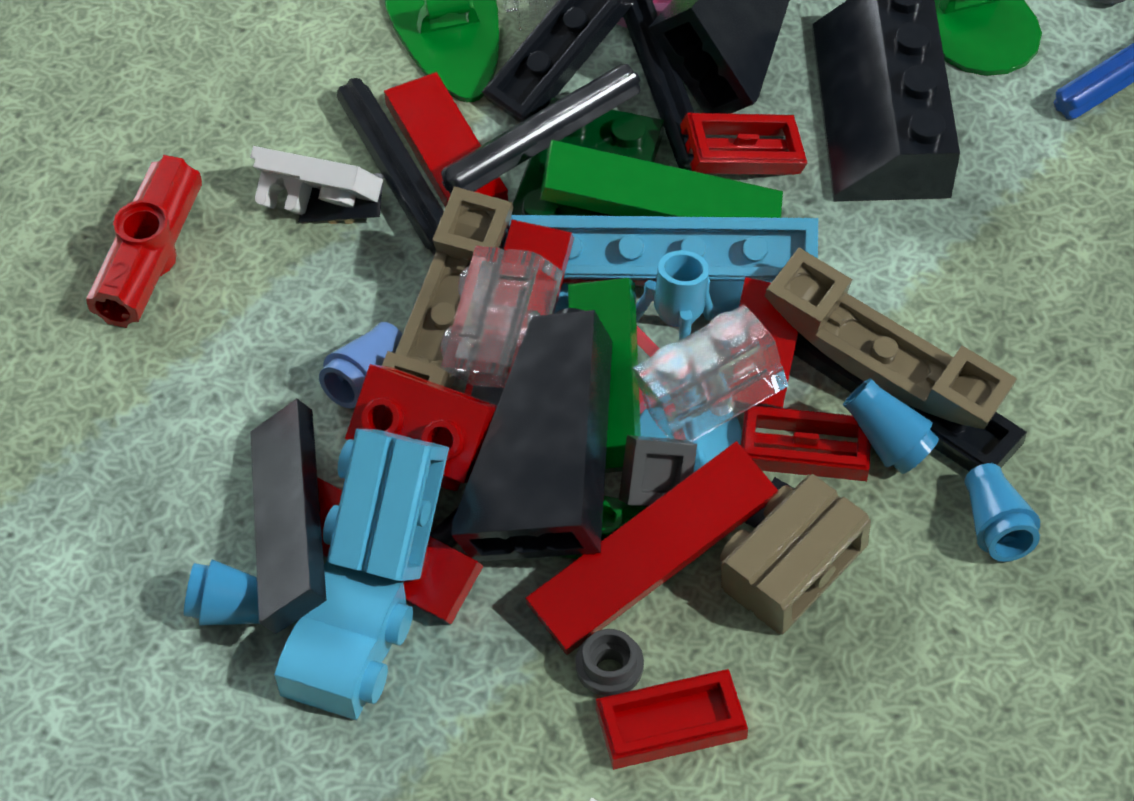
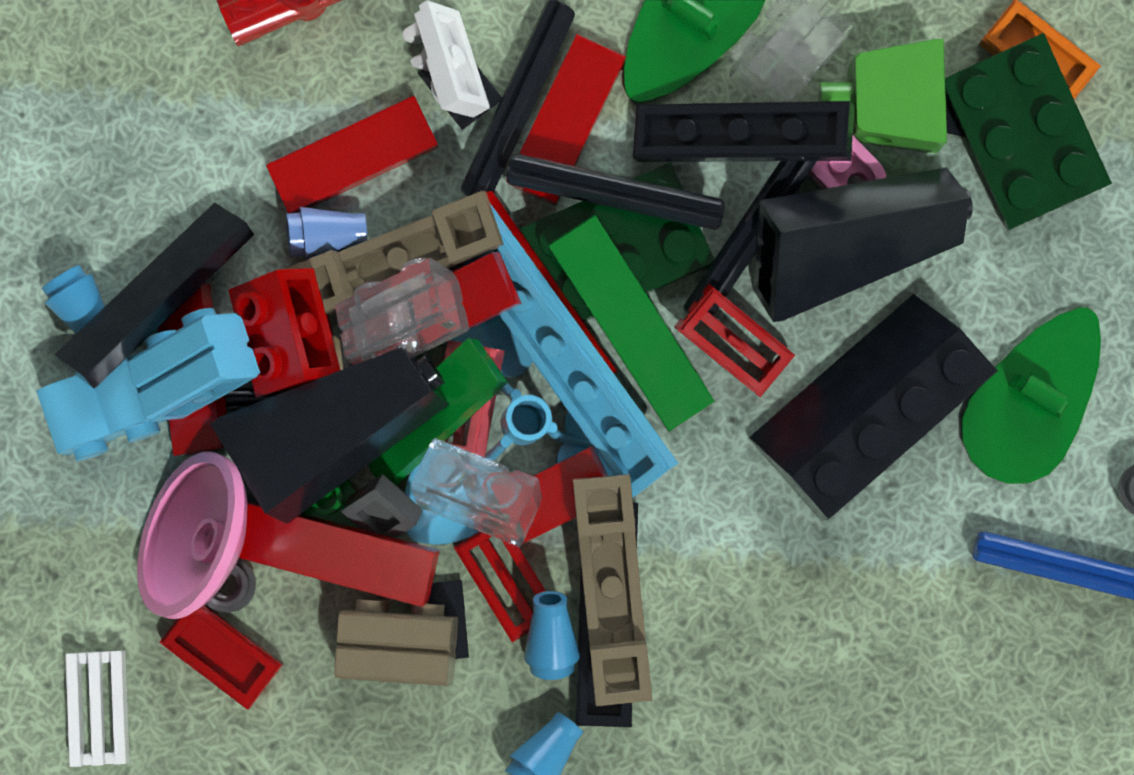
camera: 50 degrees right, 30 degrees up
(317, 307) = (352, 155): none -> red tile
(540, 623) = (192, 535): none -> bright pink dish

